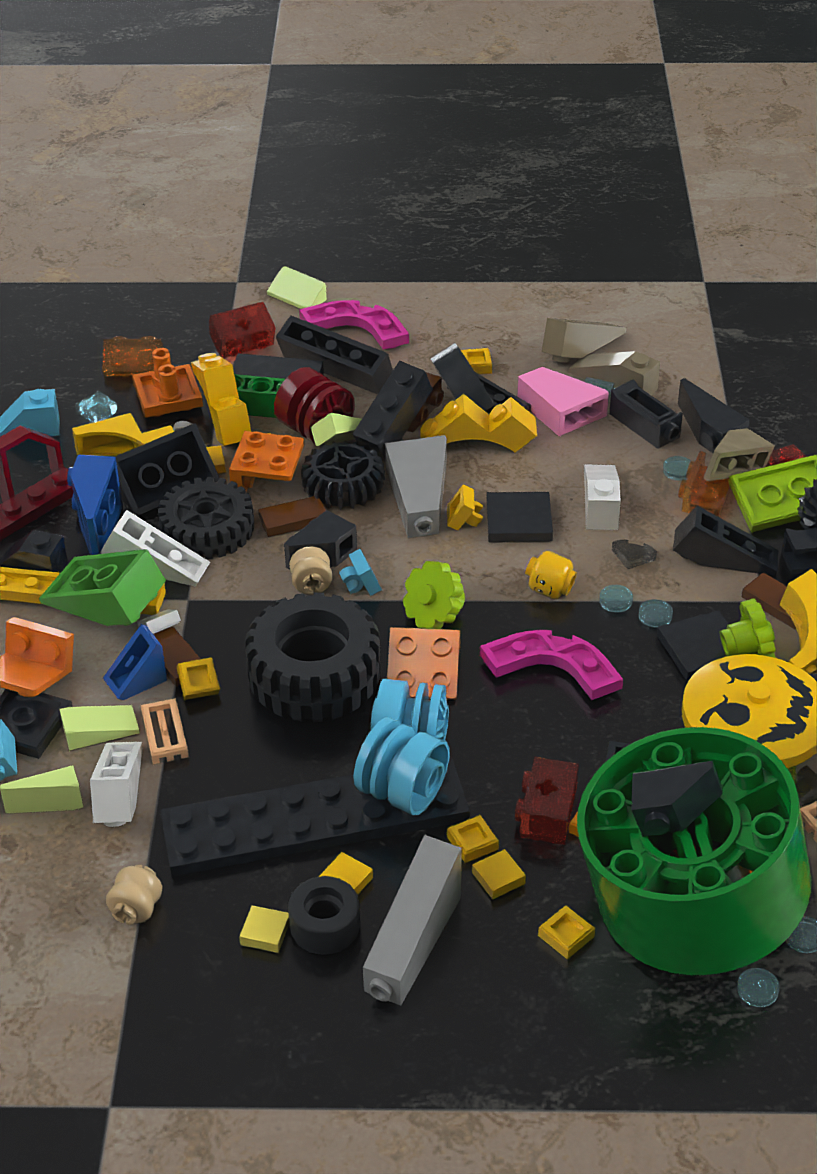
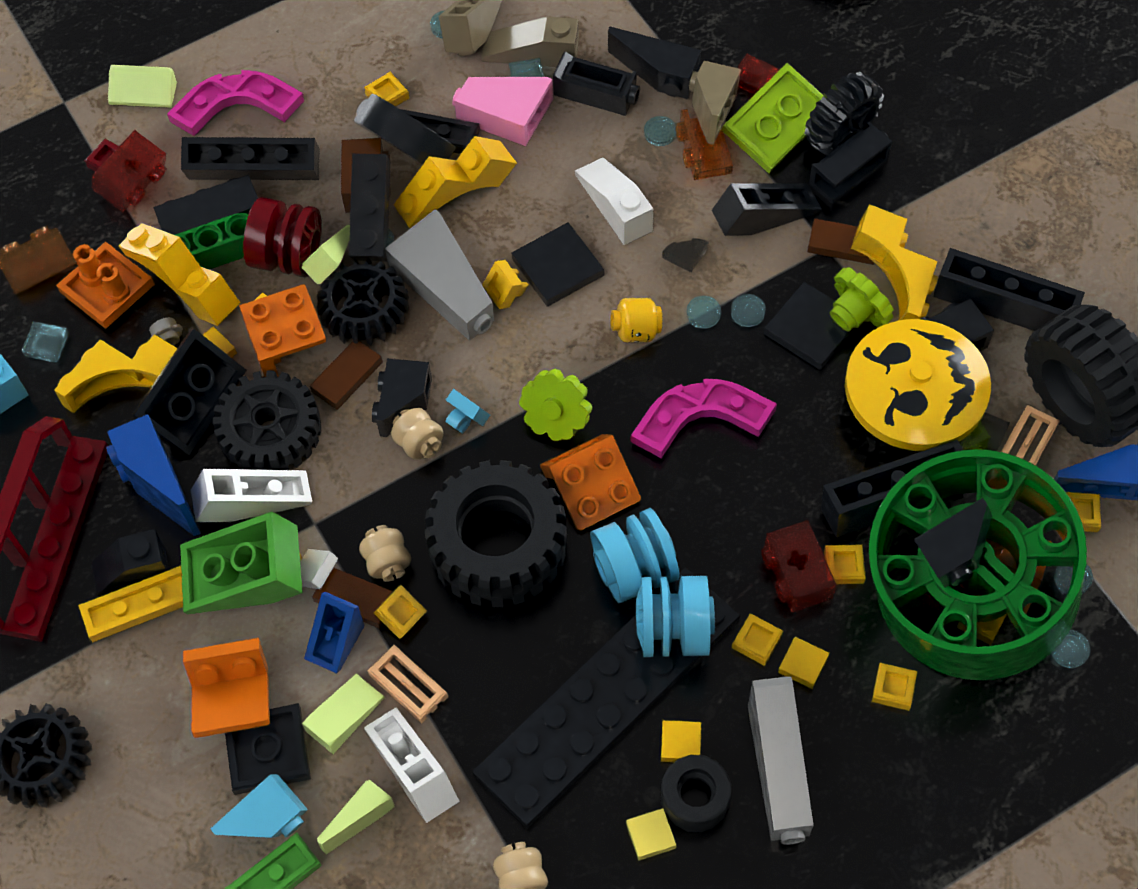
camera: 30 degrees left, 20 degrees up
(219, 634) = (385, 553): none -> tan piece

